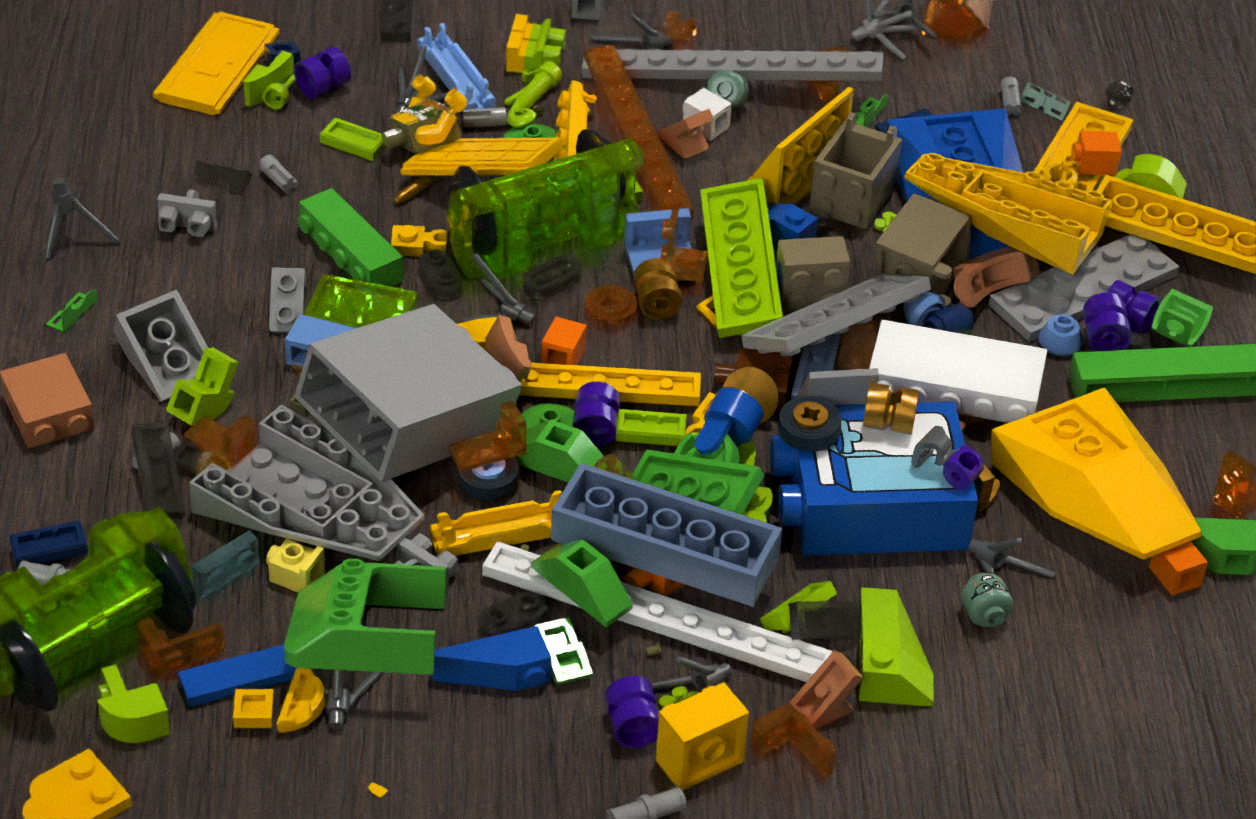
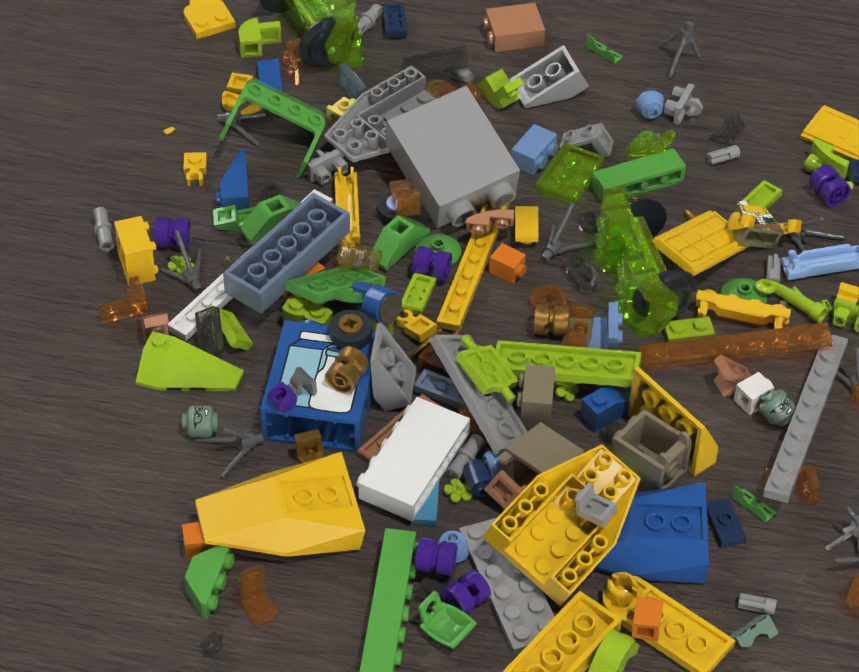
camera: 105 degrees right, 5 degrees up
(199, 242) = (650, 104): none -> medium blue cone
(294, 235) = (650, 142): none -> clear neon green plate
(459, 733) = (195, 166): none -> yellow plate
(808, 300) = (487, 369): none -> lime plate
(998, 173) = (594, 507): none -> light grey bracket

